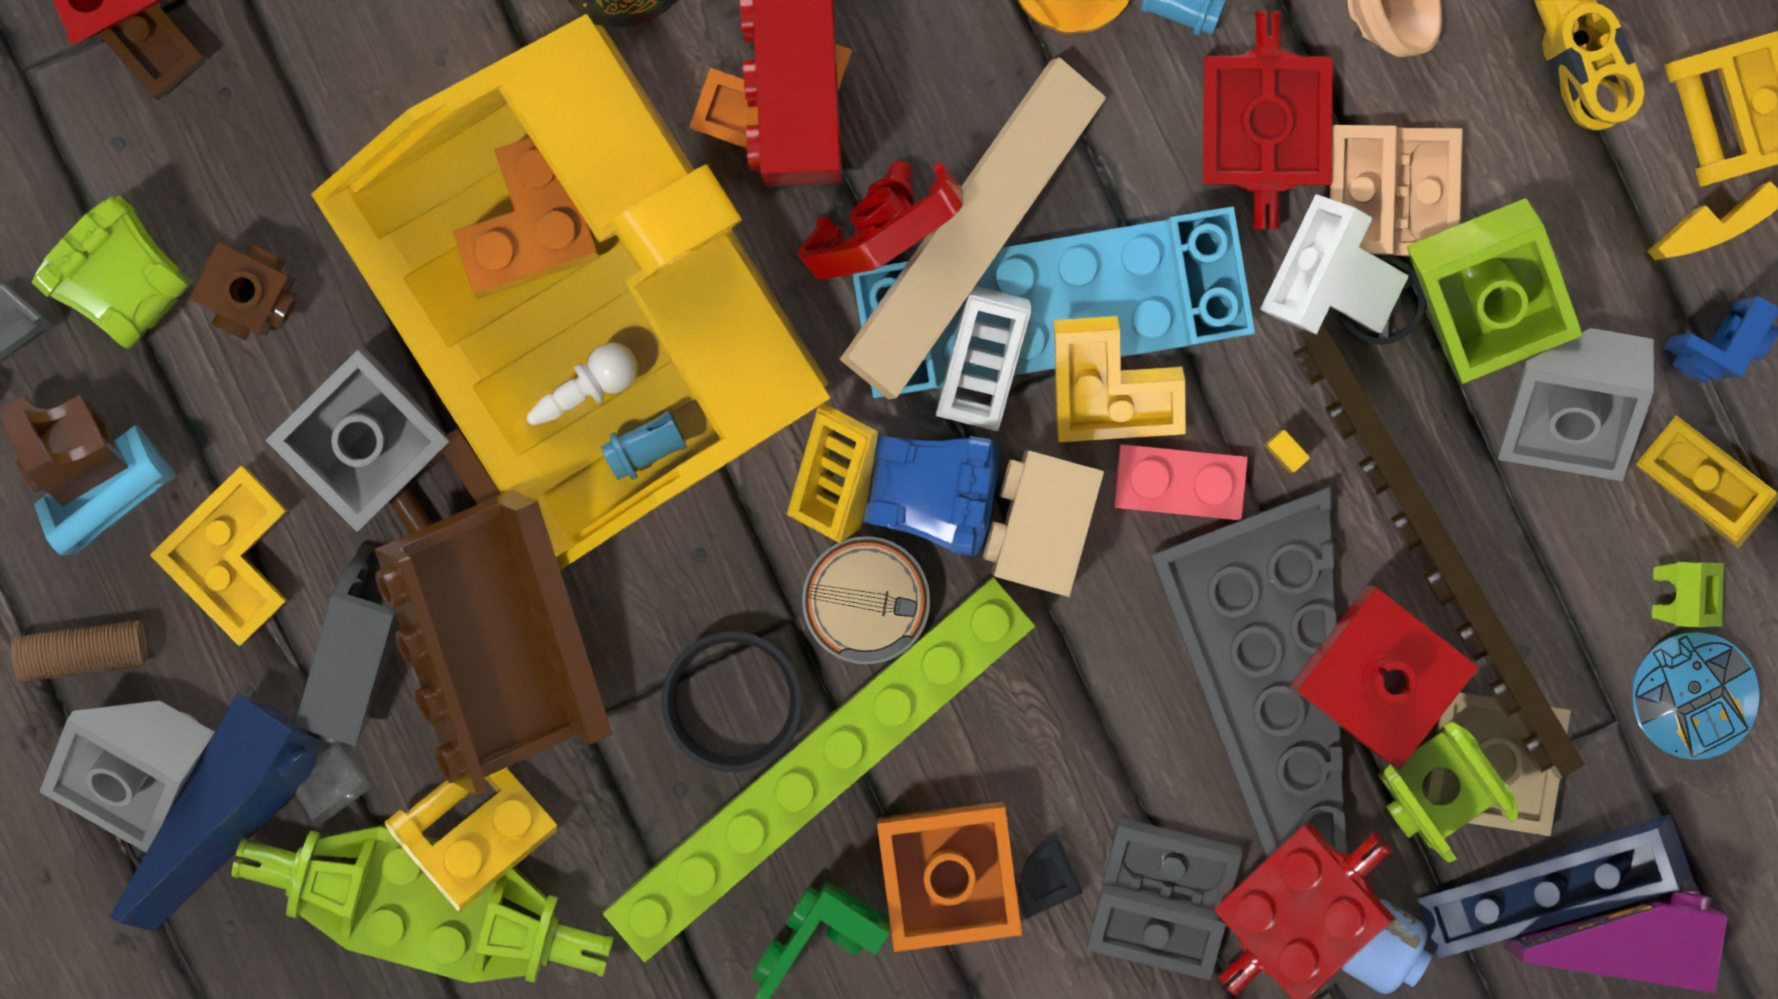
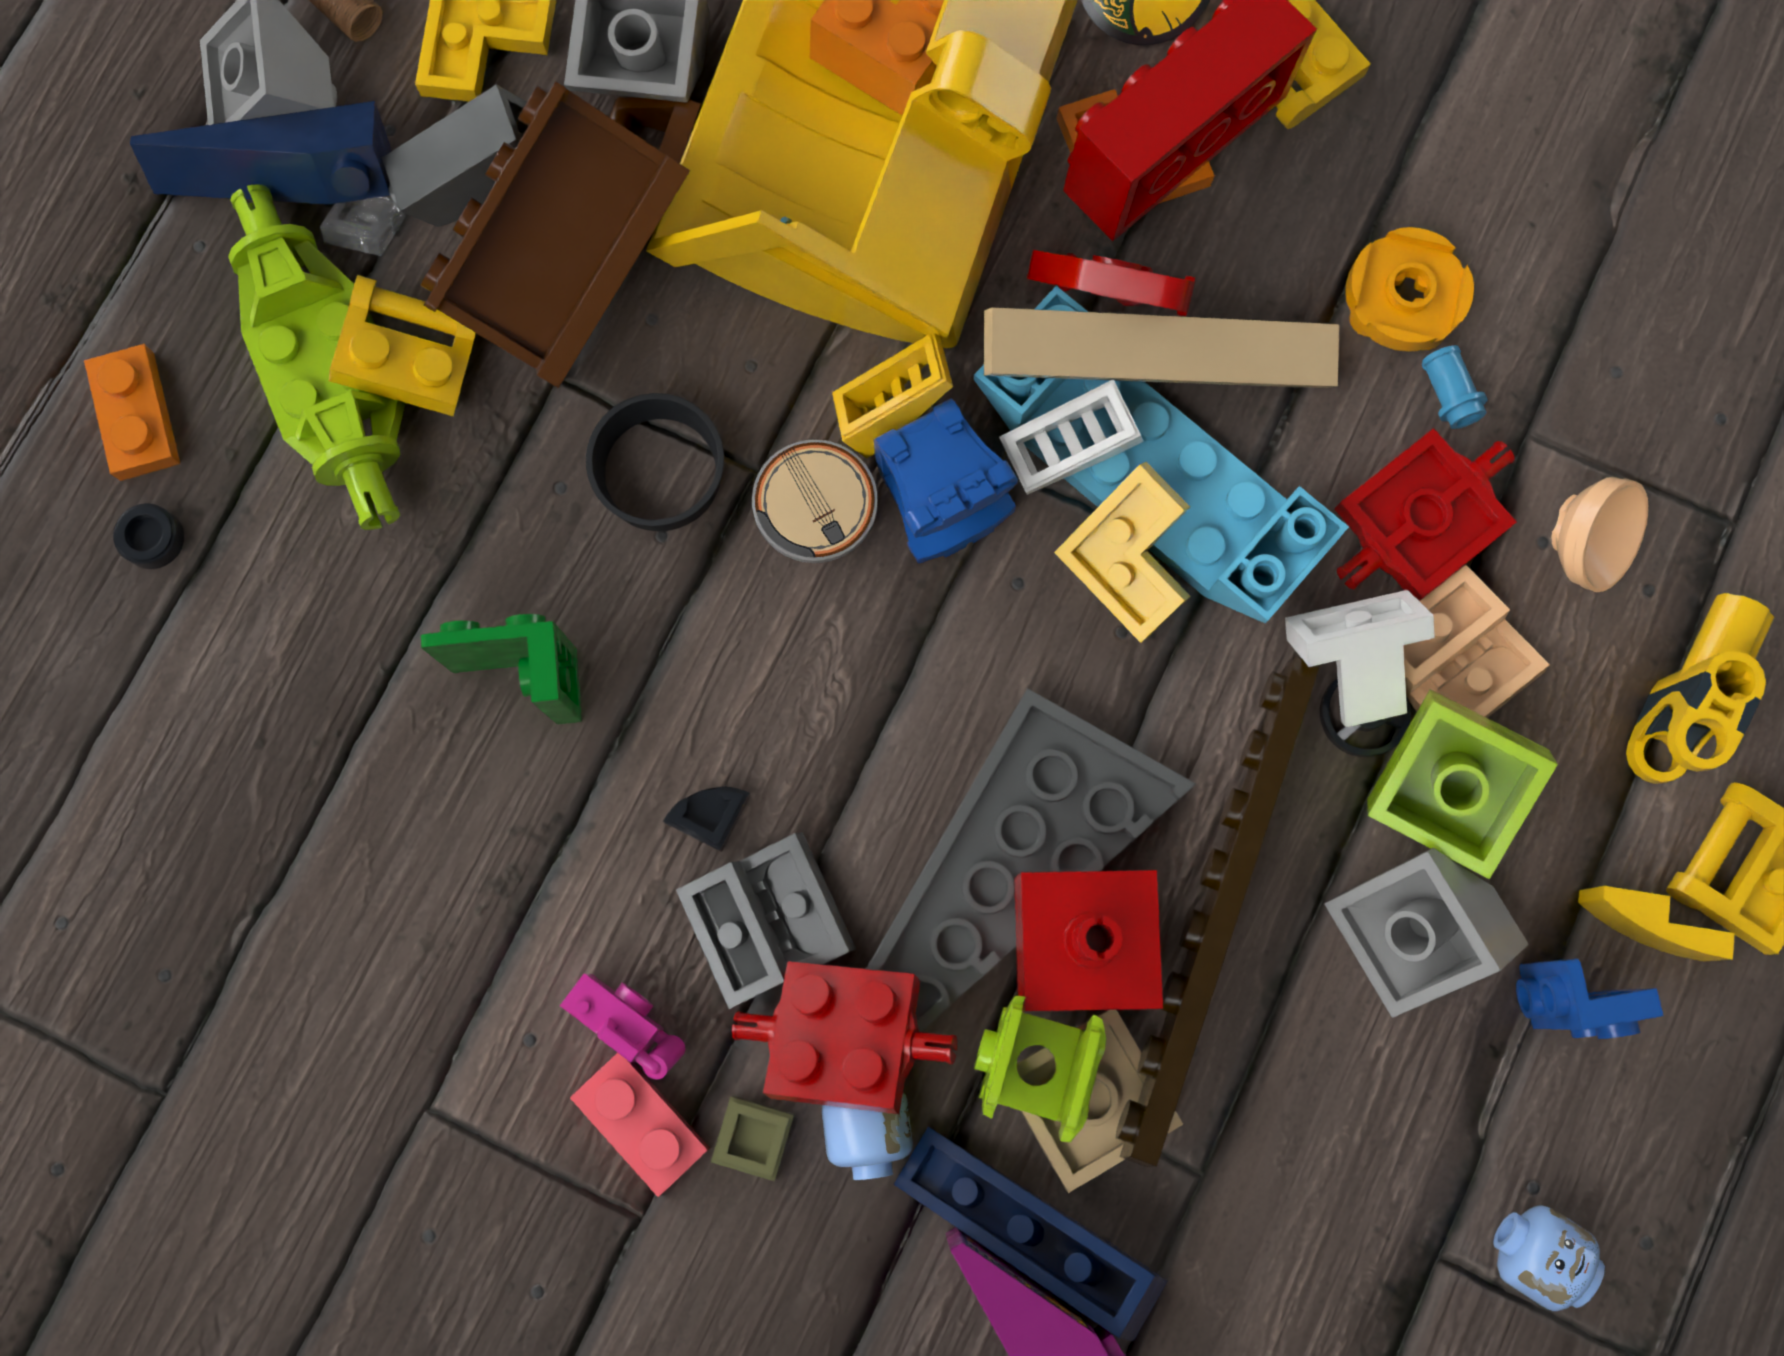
camera: 50 degrees right, 10 degrees down
(608, 370) = (834, 180): white bar -> none
(818, 769) = (653, 564): lime brick -> none
(949, 876) = (647, 726): orange brick -> none
(1043, 522) = (987, 576): tan brick -> none
(1180, 482) = (1100, 670): coral plate -> none
(1286, 451) = (1193, 729): yellow piece -> none
(1695, 695) = (1277, 1222): dark azure dish -> none
(1697, 594) = (1361, 1152): lime tile -> none
(1708, 481) = (1452, 1090): yellow slope -> none

